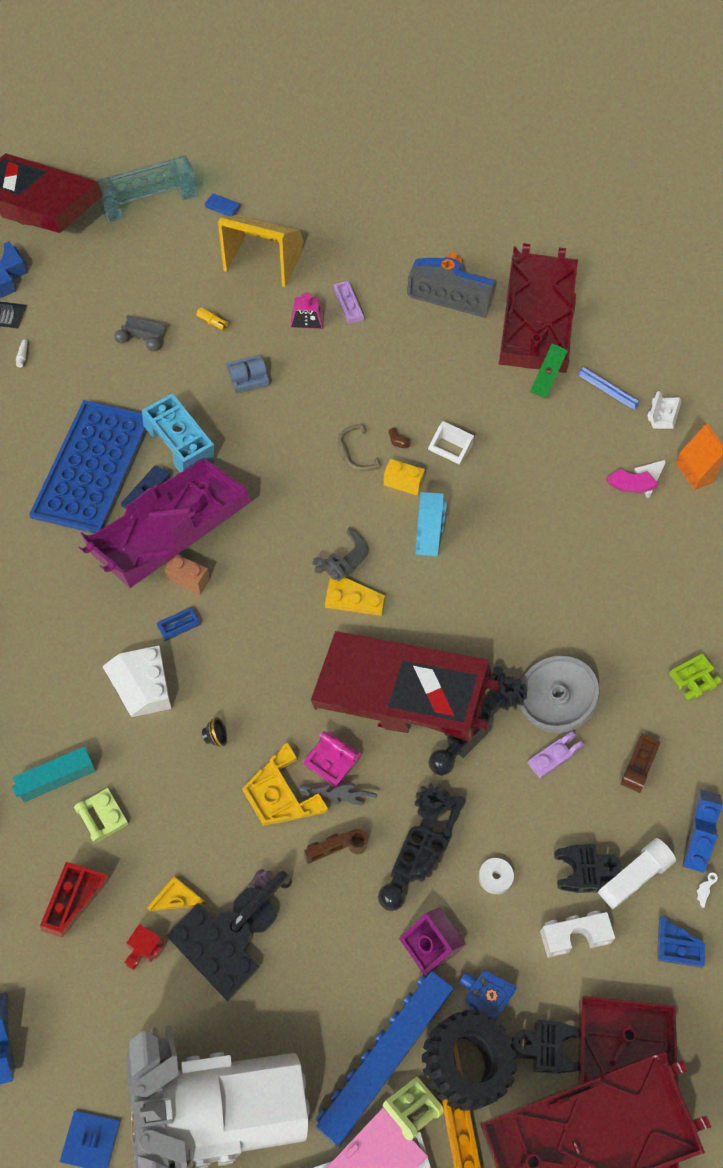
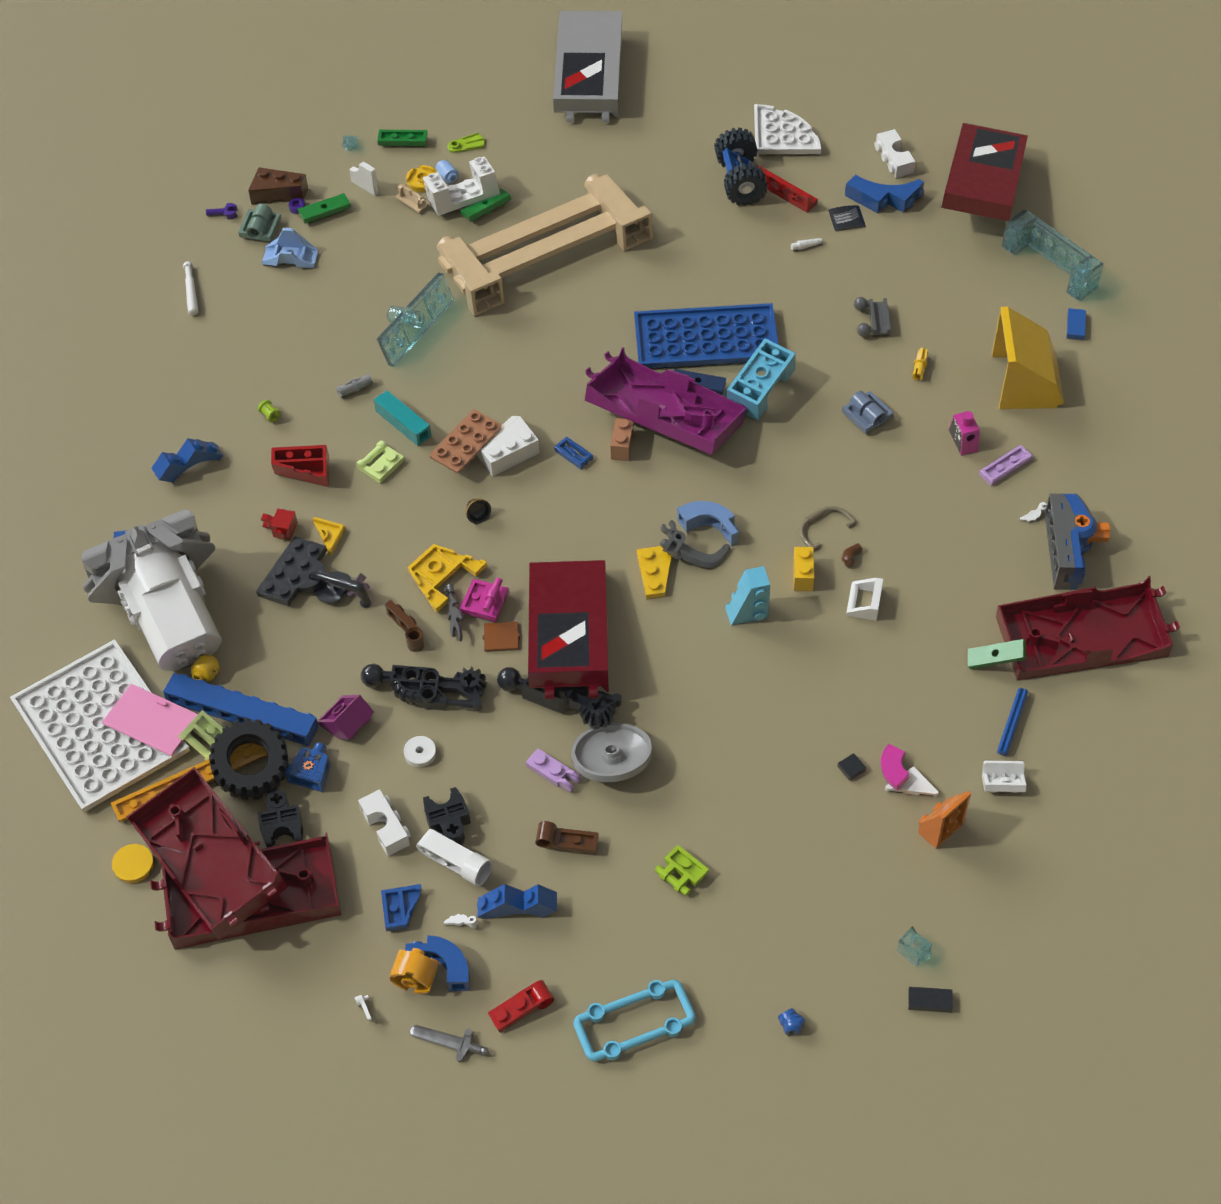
camera: 75 degrees right, 5 degrees down
(125, 716) = (465, 441): none -> nougat bracket
(314, 526) = (708, 514): none -> medium blue arch
(318, 1087) = (205, 668): none -> yellow head
(379, 758) = (501, 636): none -> dark orange piece
(407, 301) = (1034, 514): none -> white piece
(620, 513) = (851, 766): none -> black tile

